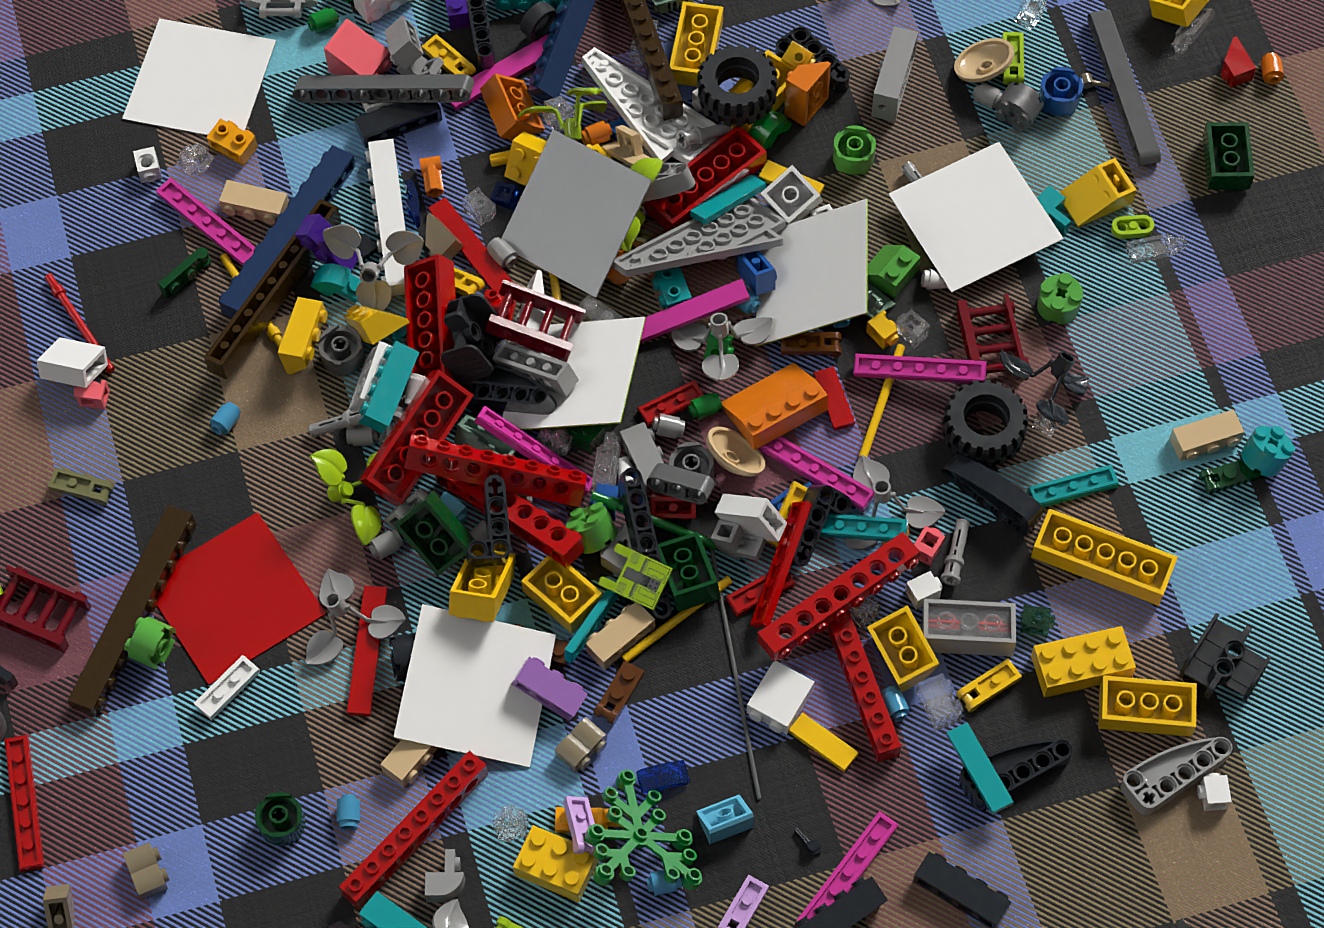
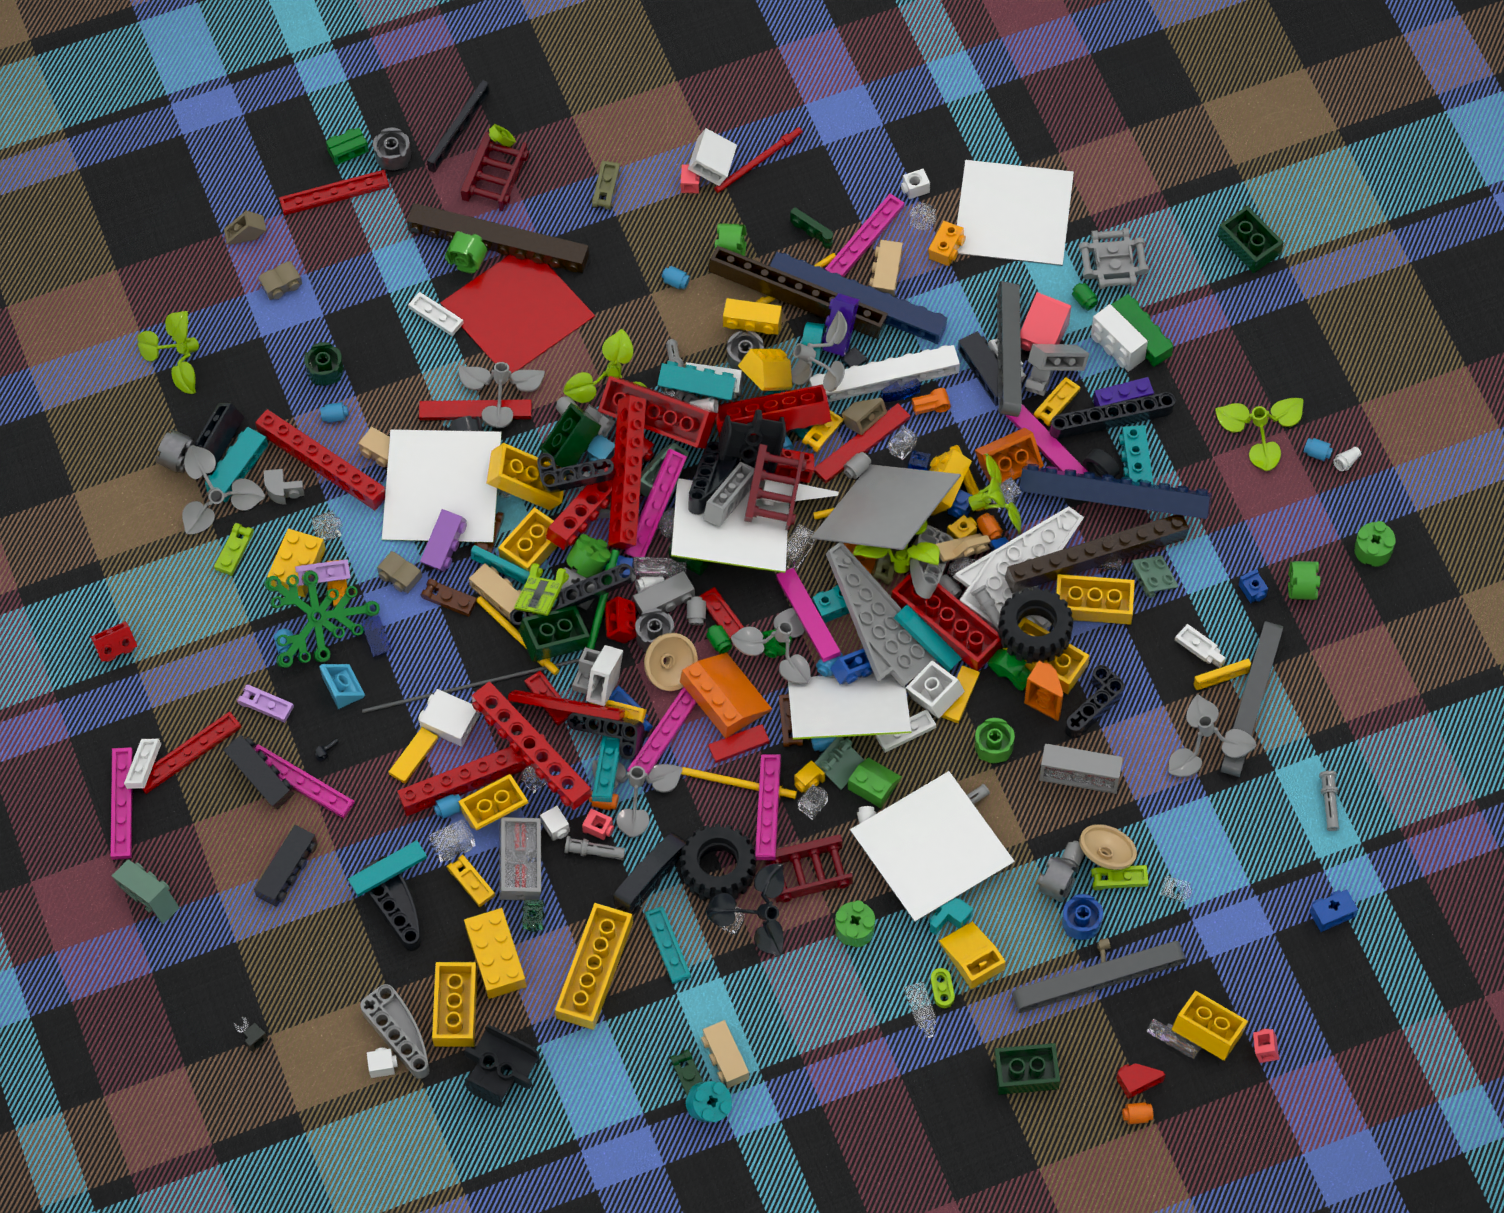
camera: 85 degrees right, 0 degrees up
(189, 352) = (732, 237): none -> bright green brick
(680, 483) = (628, 615): dark grey beam -> none
(798, 55) = (1085, 682): yellow brick -> none

